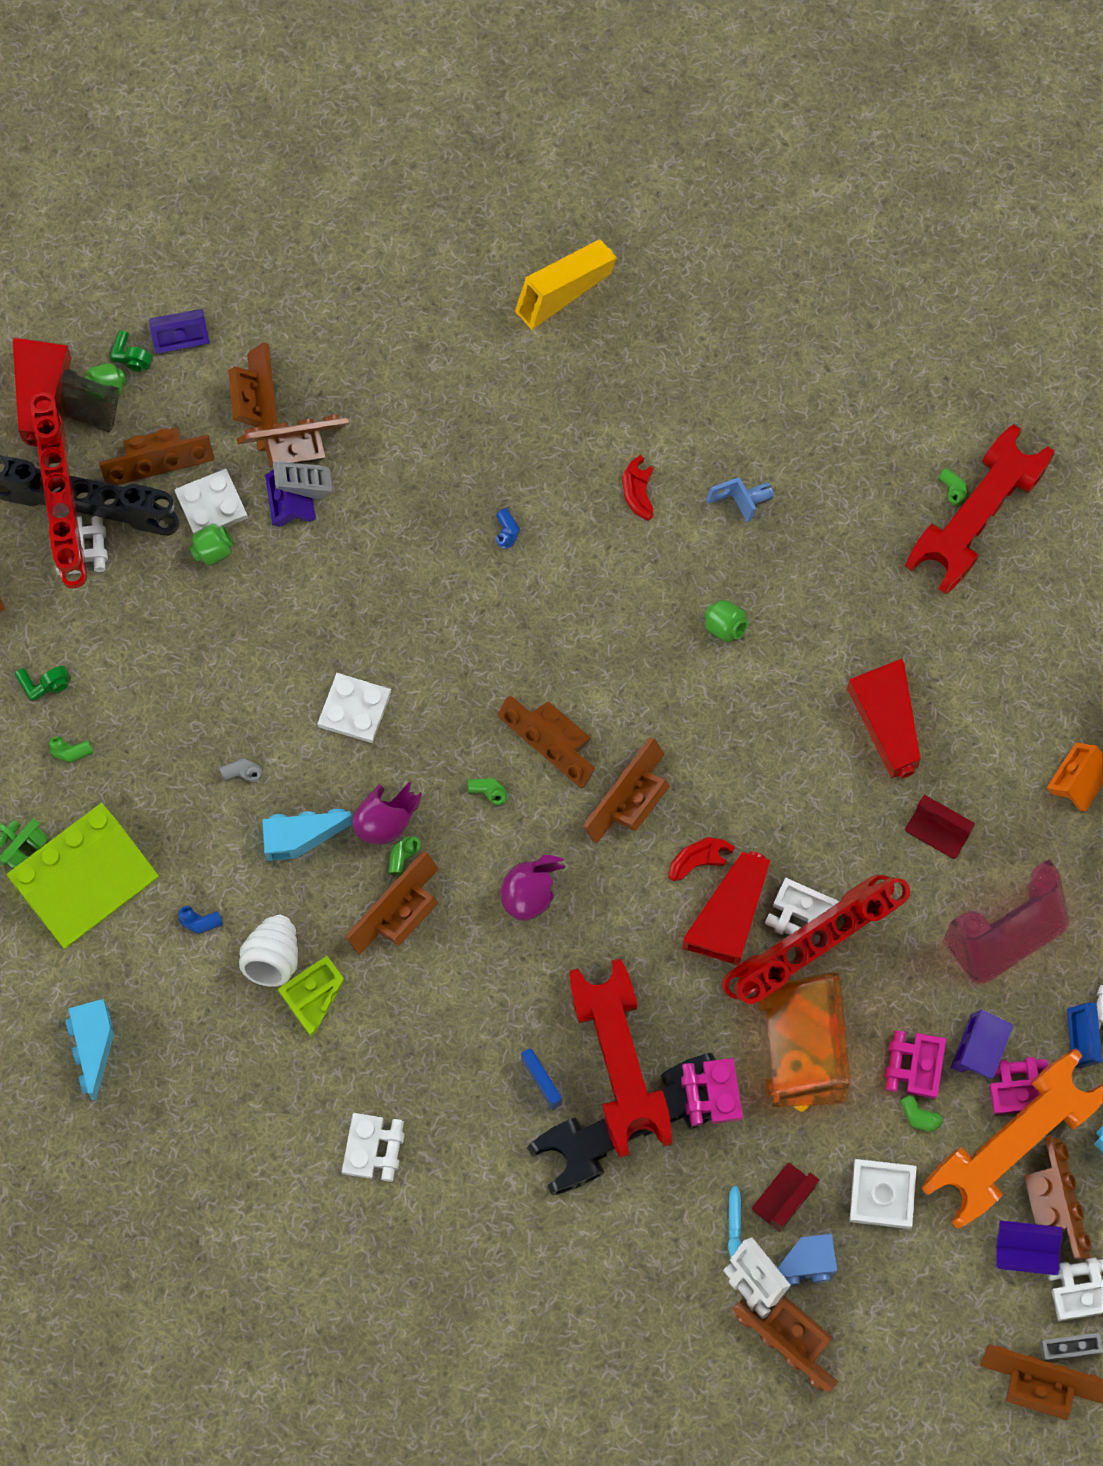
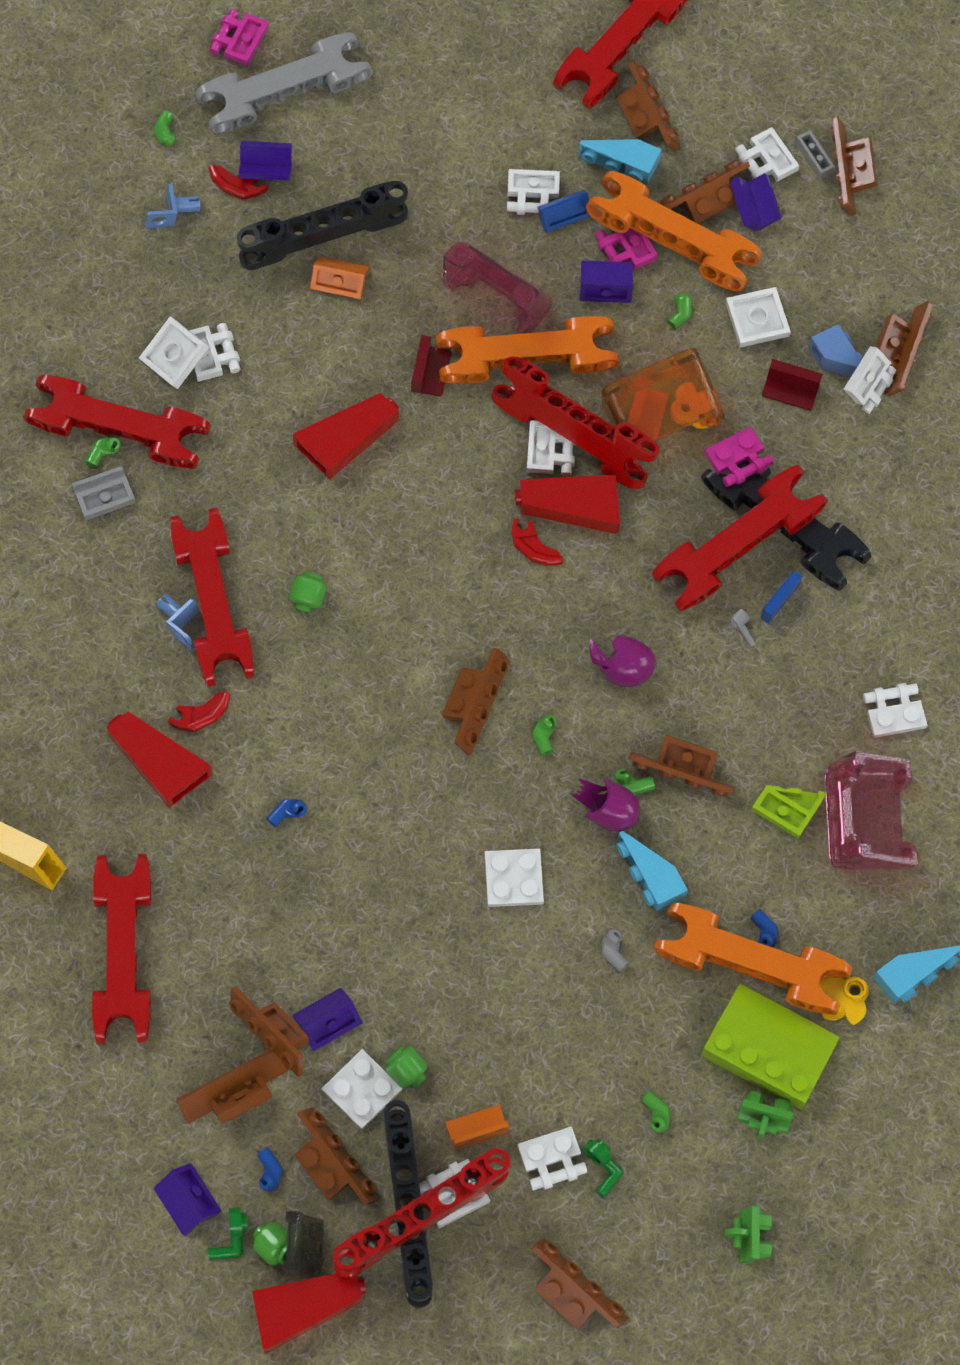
camera: 115 degrees left, 0 degrees up
(80, 641) = (549, 1150): none -> white plate
(97, 963) = (851, 1006): none -> yellow plate
(128, 586) = (477, 1127): none -> orange panel
(137, 927) = (795, 973): none -> orange piece
(170, 405) = (272, 1172): none -> blue arm
(266, 1067) = (867, 812): none -> clear pink windscreen
(270, 952) = (770, 851): white piece -> none
(316, 487) = (308, 1003): light grey slope -> none
(389, 332) = (121, 995): none -> red piece
(534, 1027) = (739, 620): none -> light grey hand
(604, 431) = (160, 760): none -> red slope
(631, 795) = (504, 610): dark orange bracket -> none
(734, 1220) = (829, 417): medium azure piece -> none
(798, 538) = (203, 550): none -> red piece
(905, 473) = (103, 493): none -> light grey plate
(924, 1068) = (641, 317): dark pink plate -> none
(937, 881) = (566, 346): none -> orange piece
(1031, 613) = (210, 363): none -> white plate
(1038, 580) = (174, 352): none -> white plate

